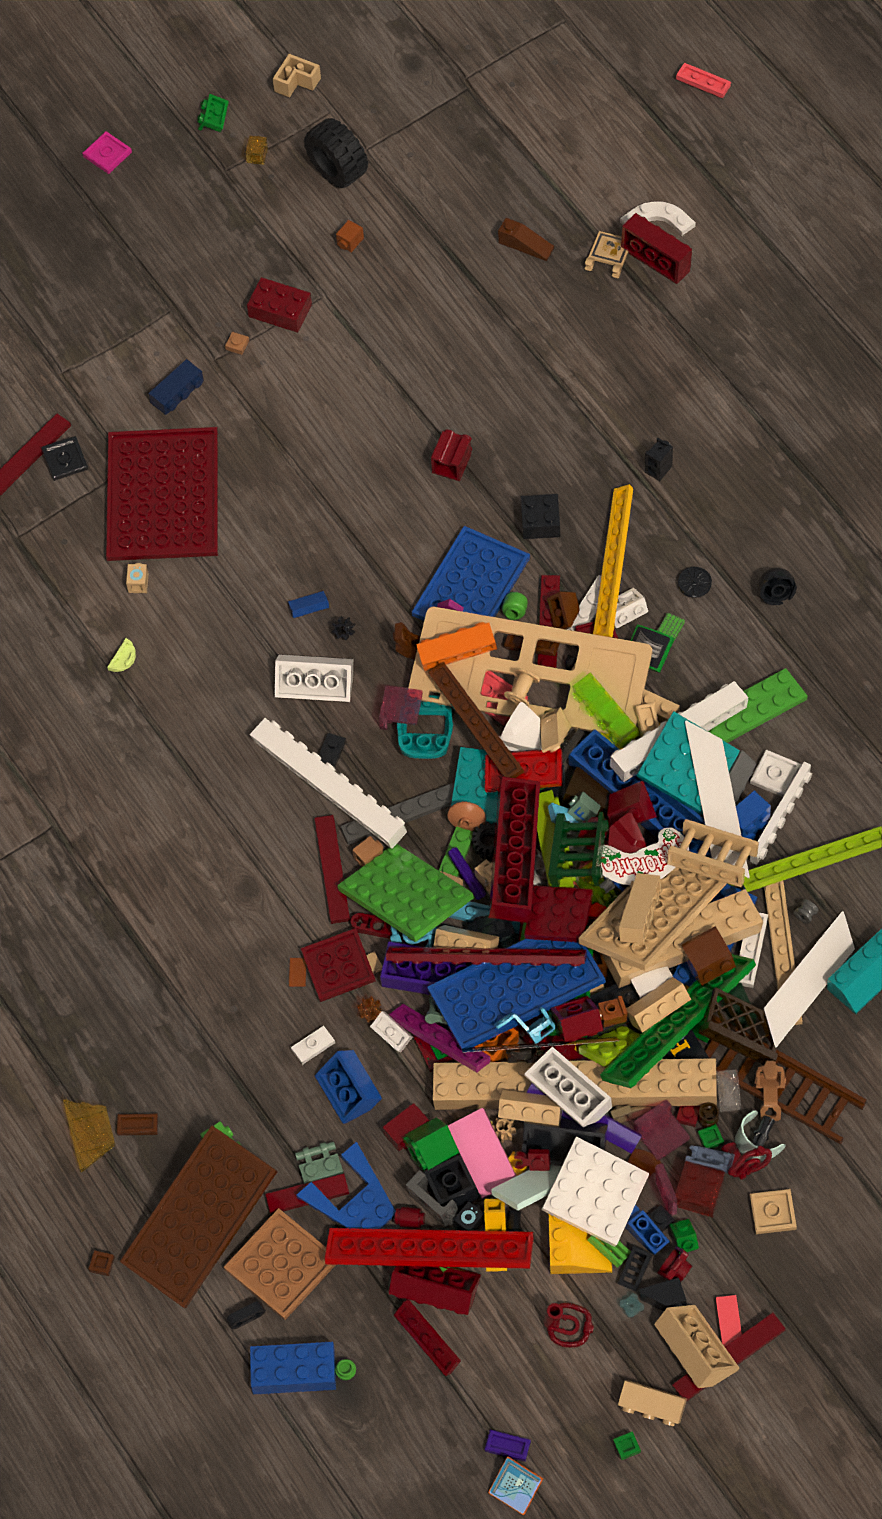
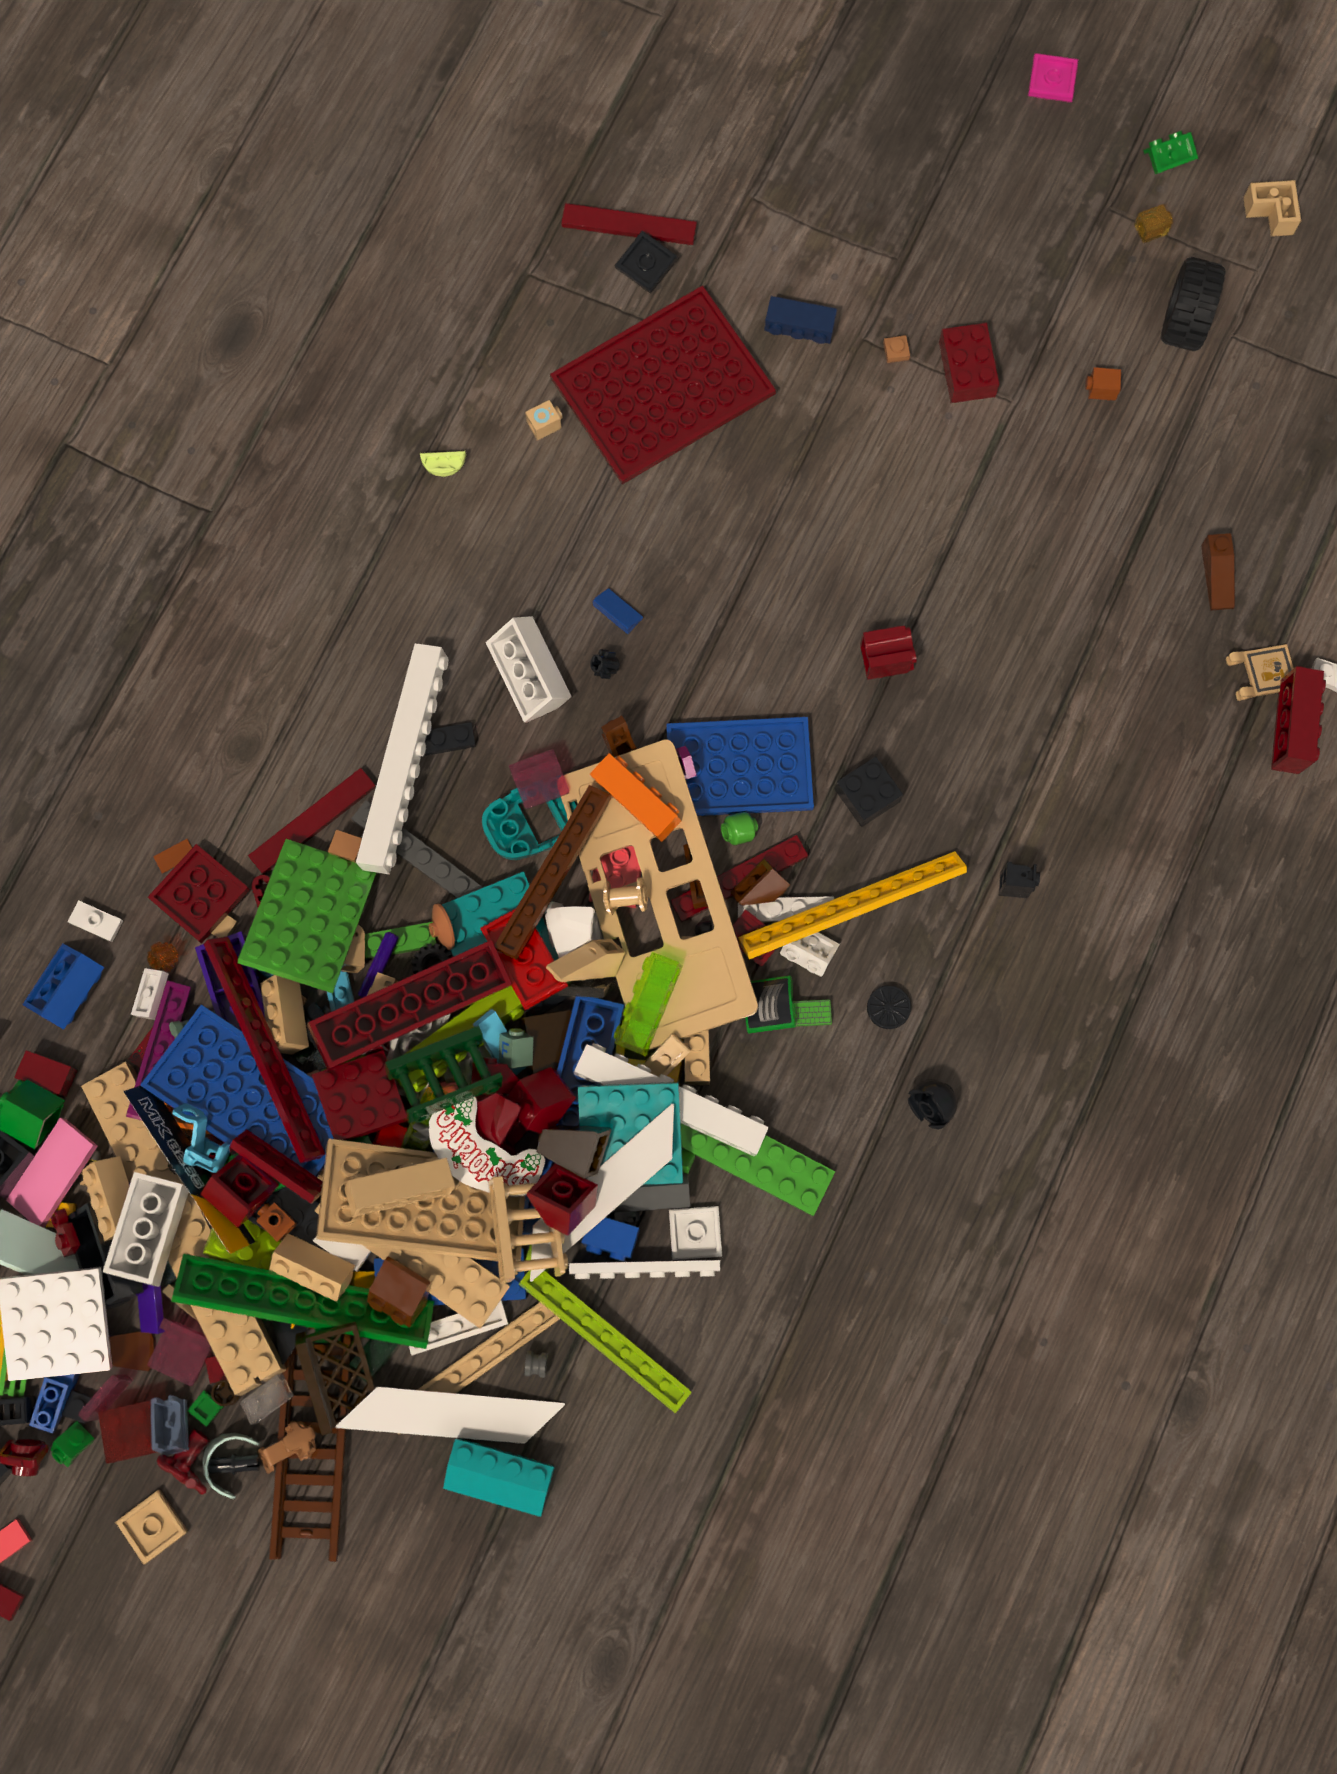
camera: 55 degrees right, 15 degrees up
(583, 977) = (277, 1165): none -> dark red plate
(676, 796) = (575, 1147): none -> dark brown slope
(709, 816) = (563, 1198): none -> dark red slope

